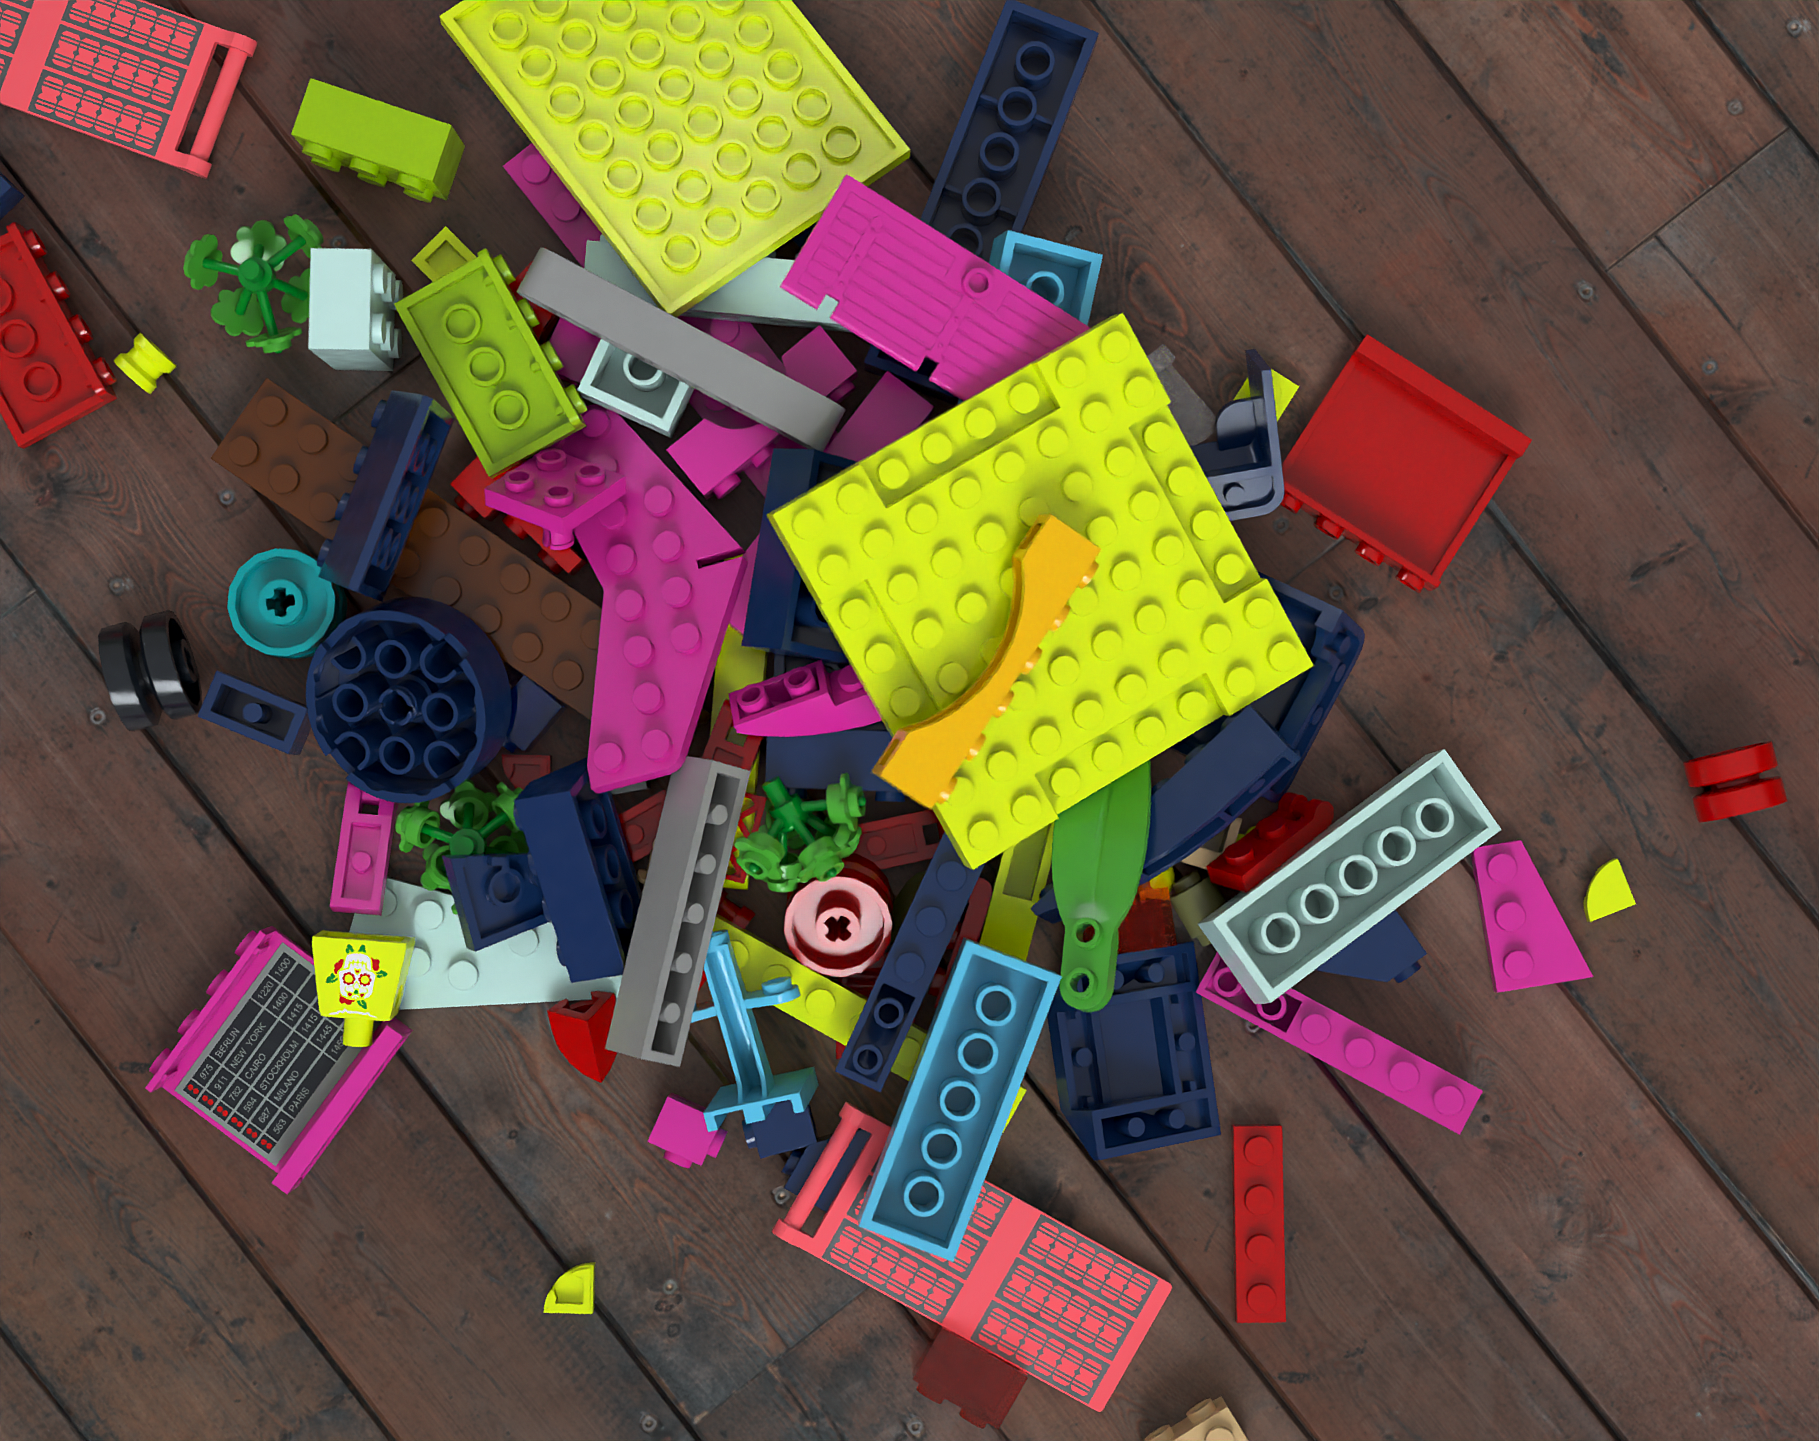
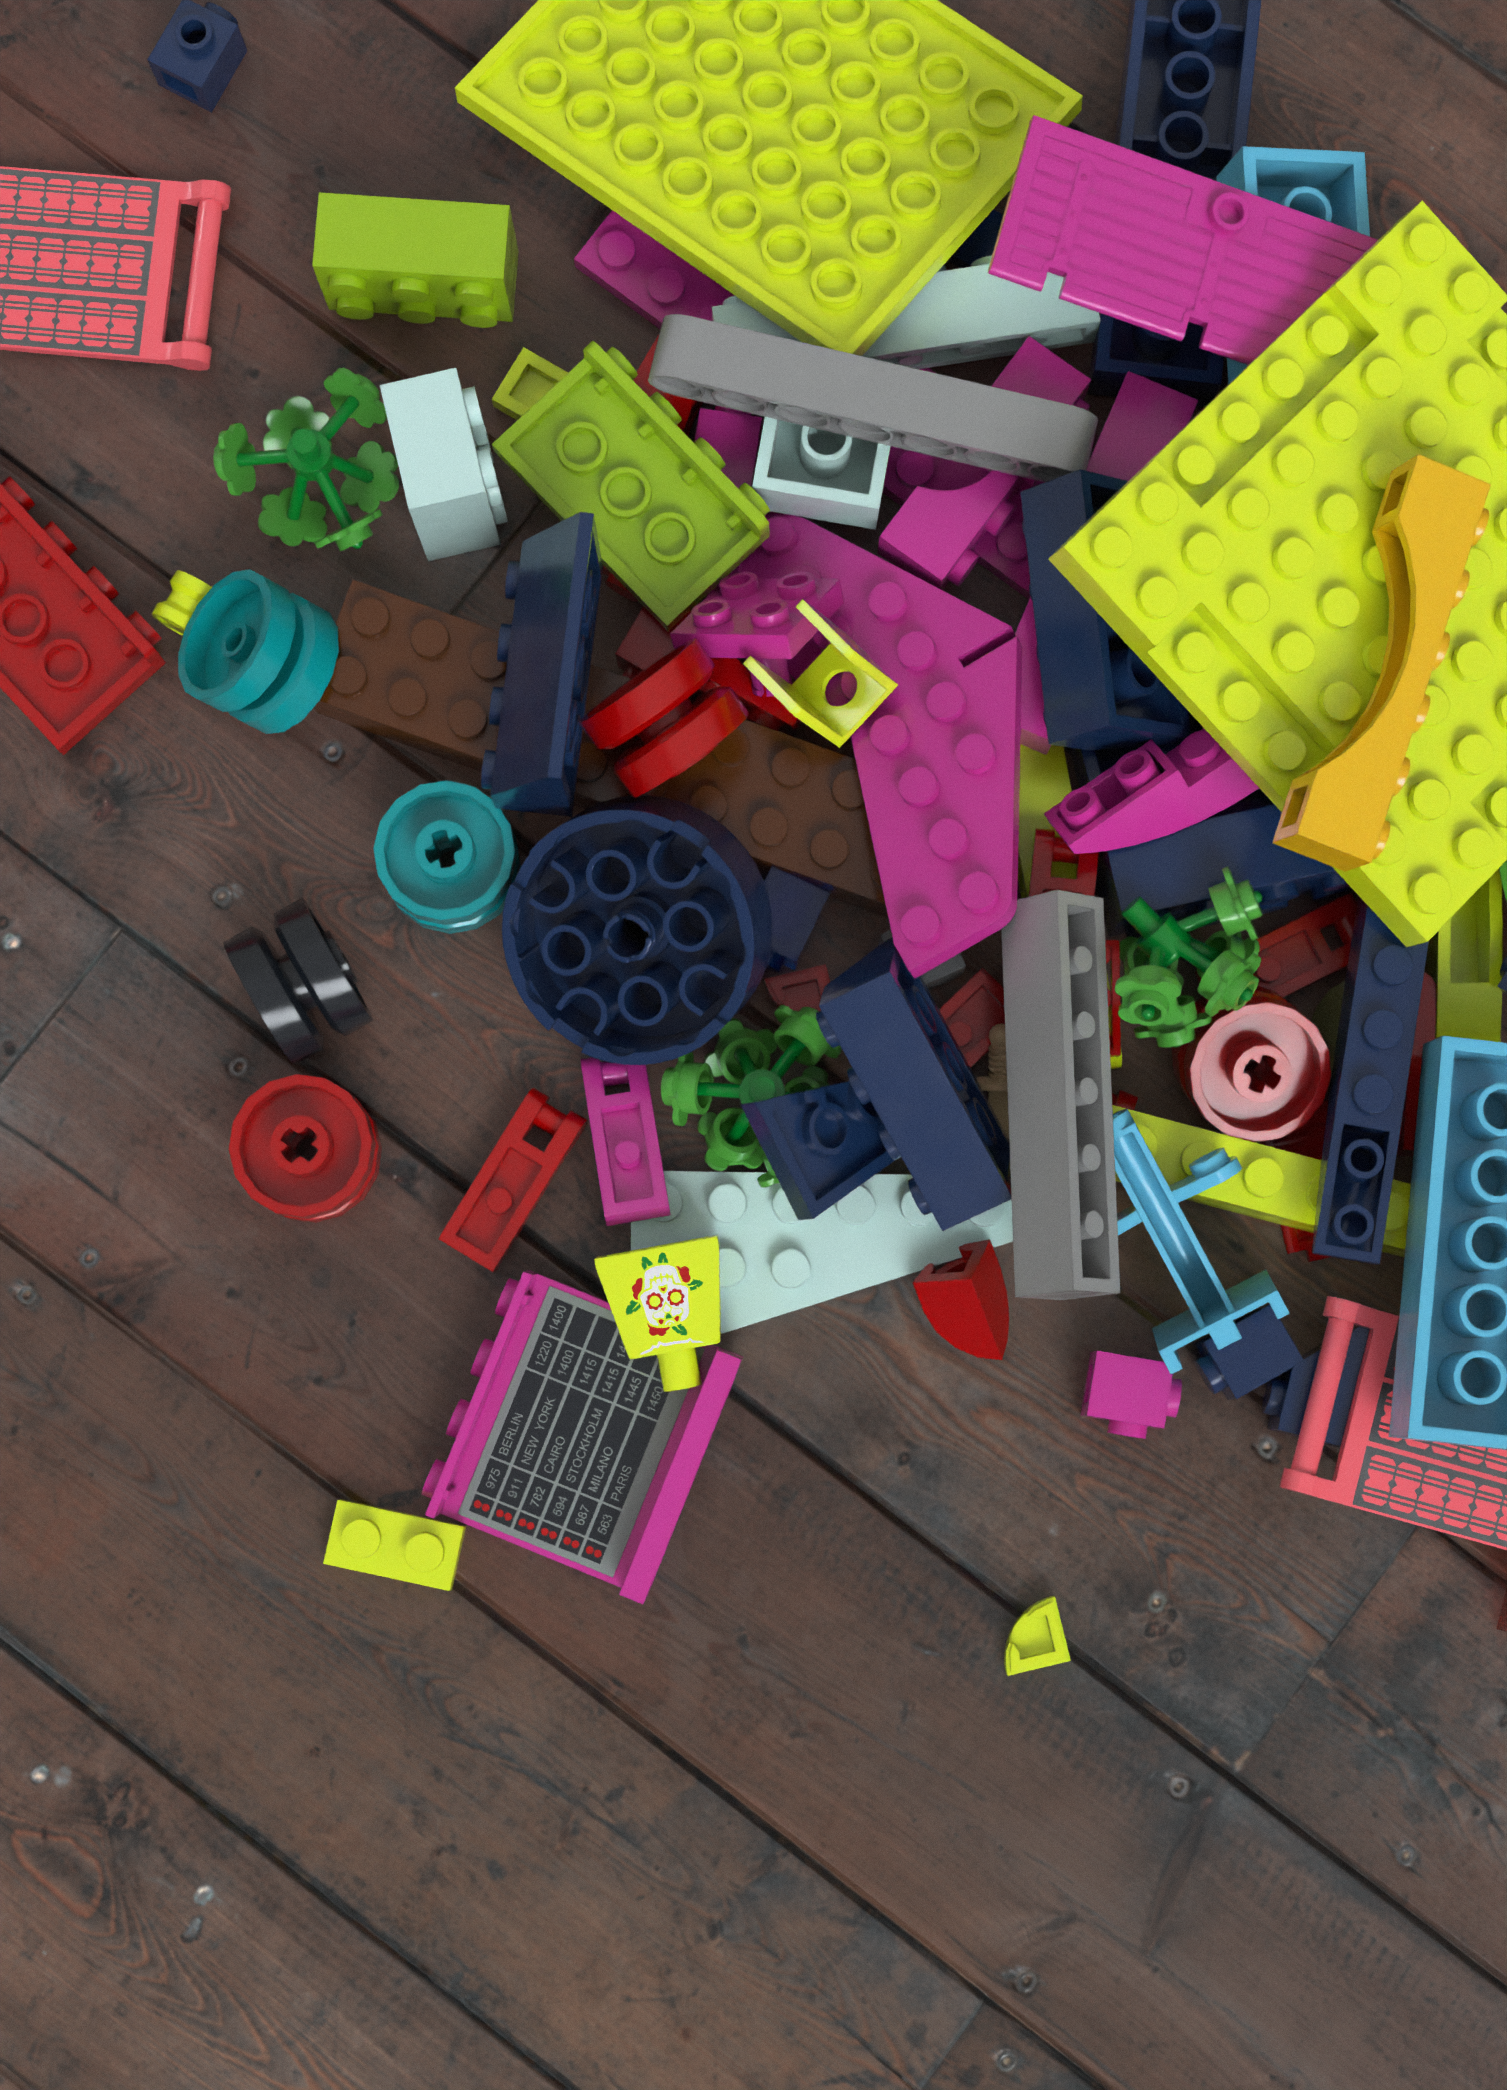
camera: 10 degrees left, 5 degrees down
(98, 790) = (268, 1140): none -> red wheel
(122, 1101) = (394, 1544): none -> neon yellow plate
(181, 415) = (258, 652): none -> teal wheel
(256, 713) = (446, 1001): dark blue brick -> none
(274, 857) = (511, 1182): none -> red plate
(459, 553) = (669, 725): none -> red wheel
(572, 564) = (807, 694): none -> neon yellow piece

